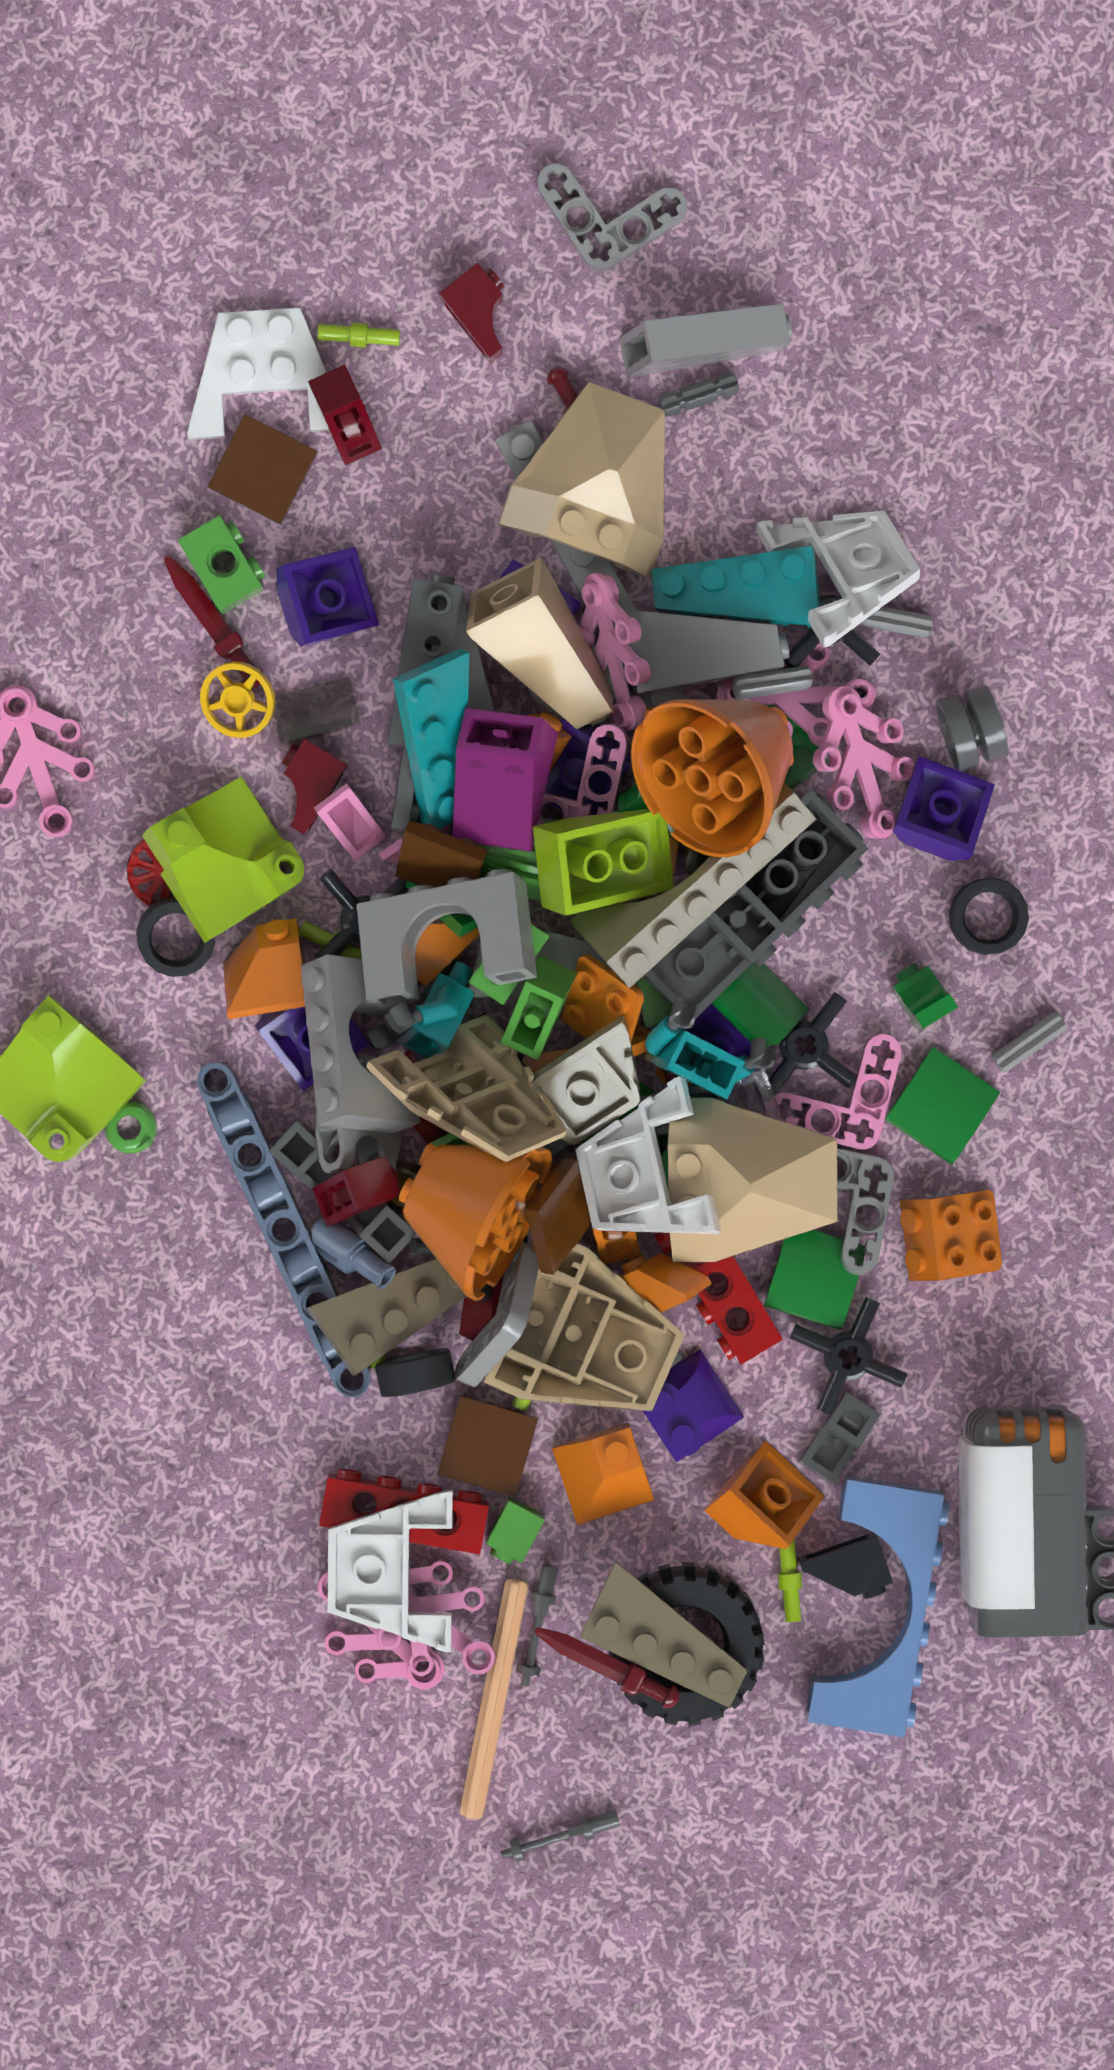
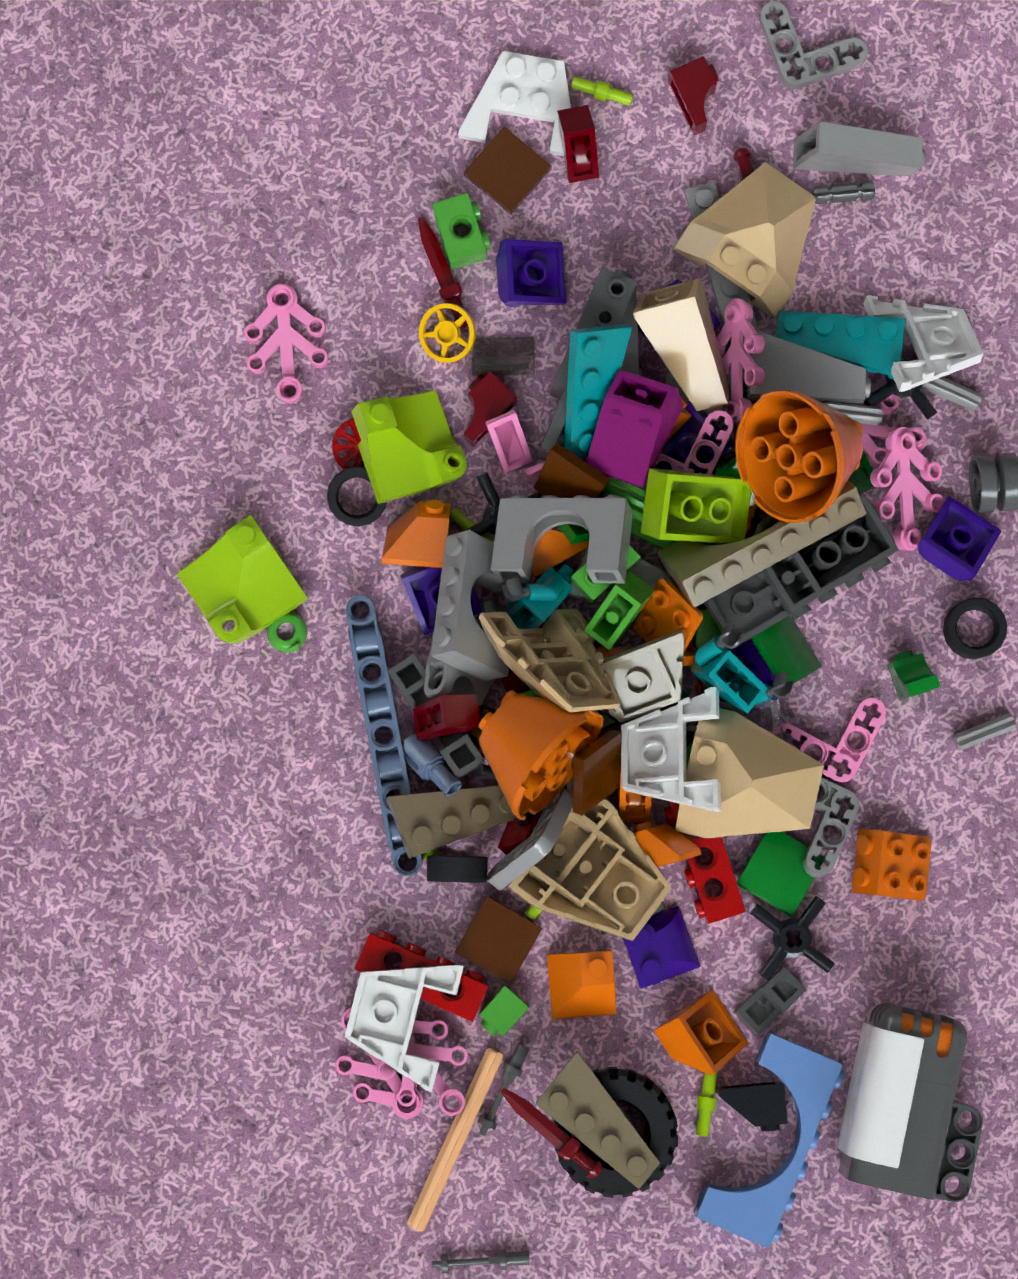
camera: 15 degrees right, 5 degrees down
(819, 1056) = (824, 683): black bar -> none
(942, 1105) = (907, 763): green slope -> none

